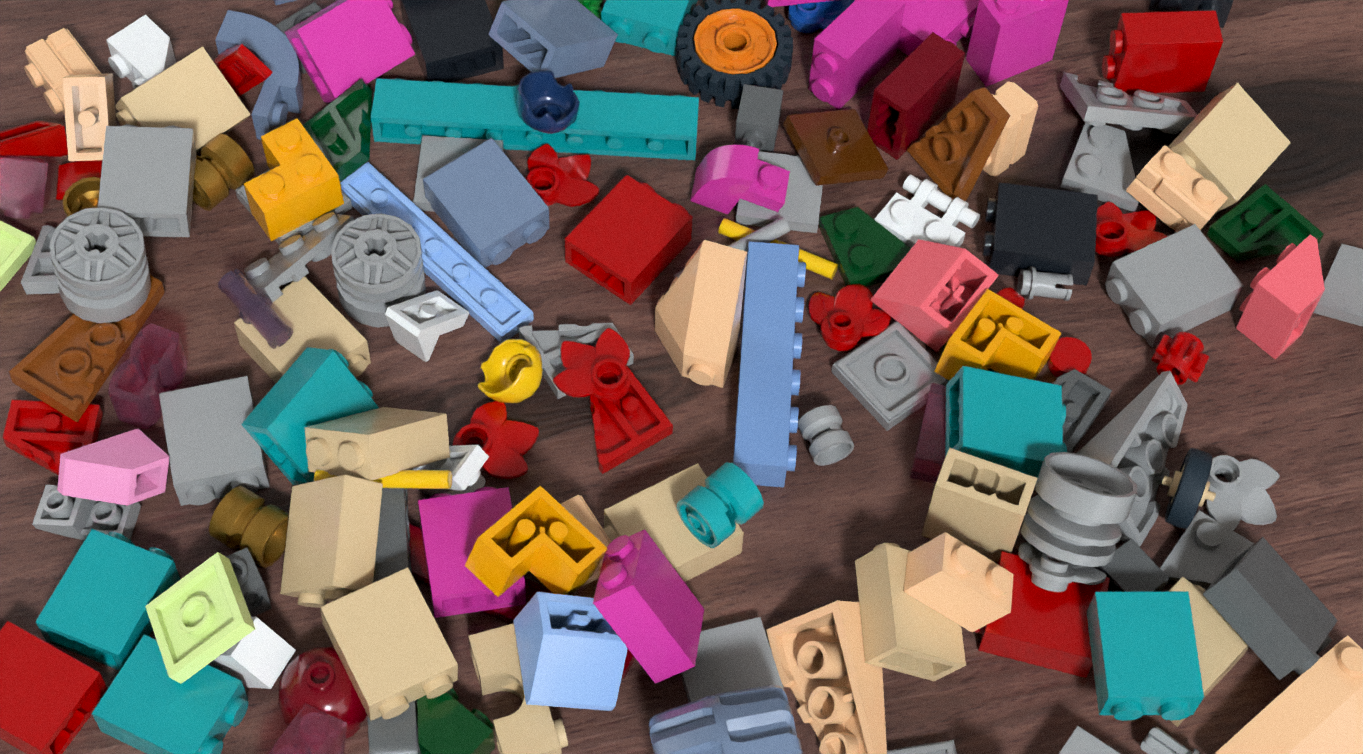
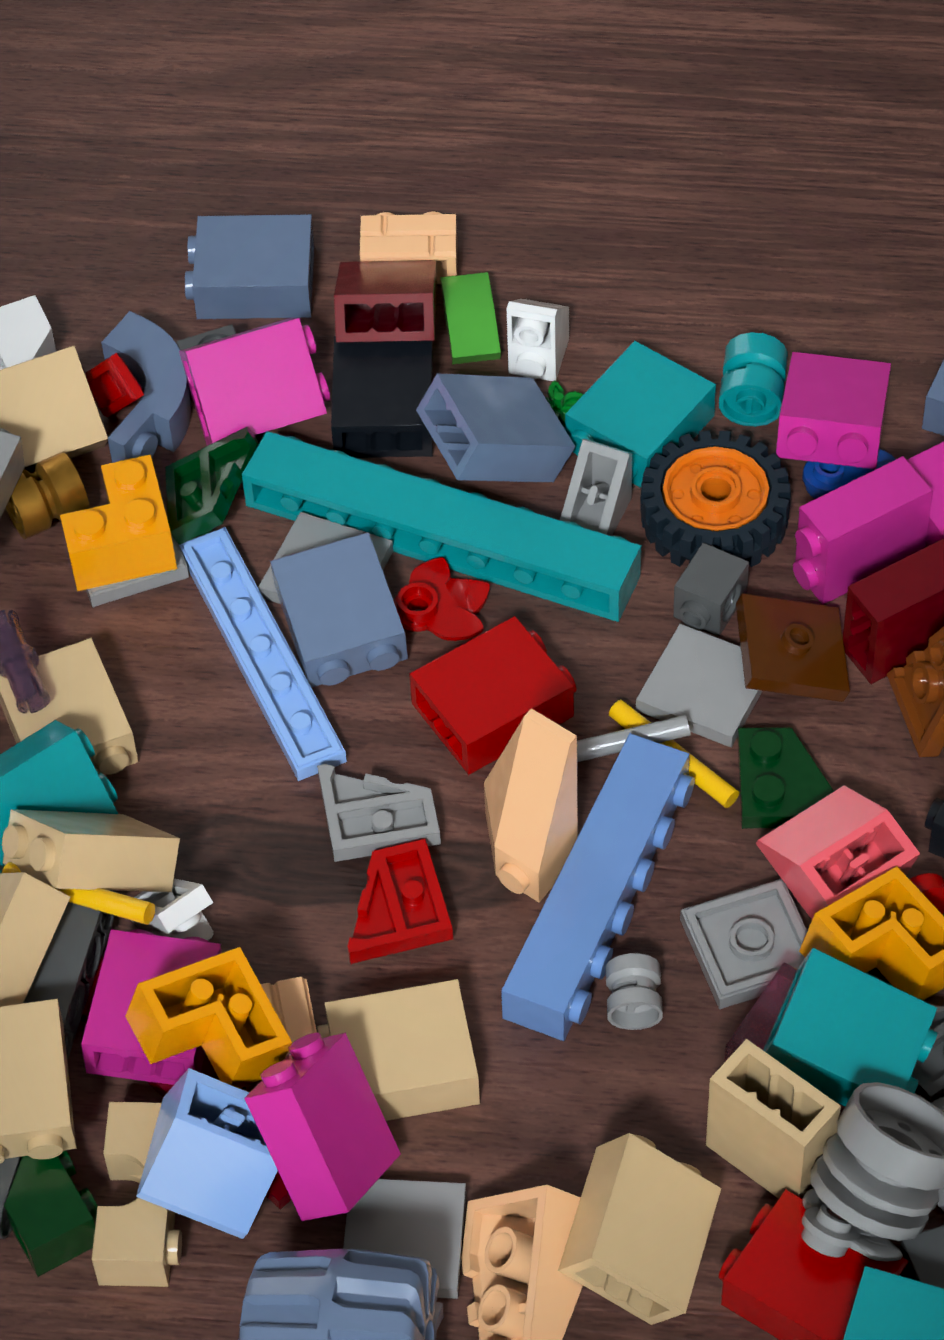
camera: 25 degrees right, 5 degrees down
(294, 255) = (79, 625): light grey wing -> none
(377, 266) = (181, 655): light grey wheel -> none
(422, 320) = (212, 724): white slope -> none
(501, 440) = (247, 891): red plate -> none
(512, 371) = (288, 814): yellow hair -> none
(545, 103) = (446, 506): dark blue hair -> none
(590, 366) = (382, 831): red plate -> none
(646, 60) = (599, 487): none -> light grey slope
(725, 500) = (454, 1032): teal wheel -> none
(738, 174) = (650, 650): dark pink brick -> none
(847, 316) = (722, 857): red plate -> none
(912, 222) = (854, 761): white plate -> none
(958, 582) = (705, 1207): light nougat brick -> none

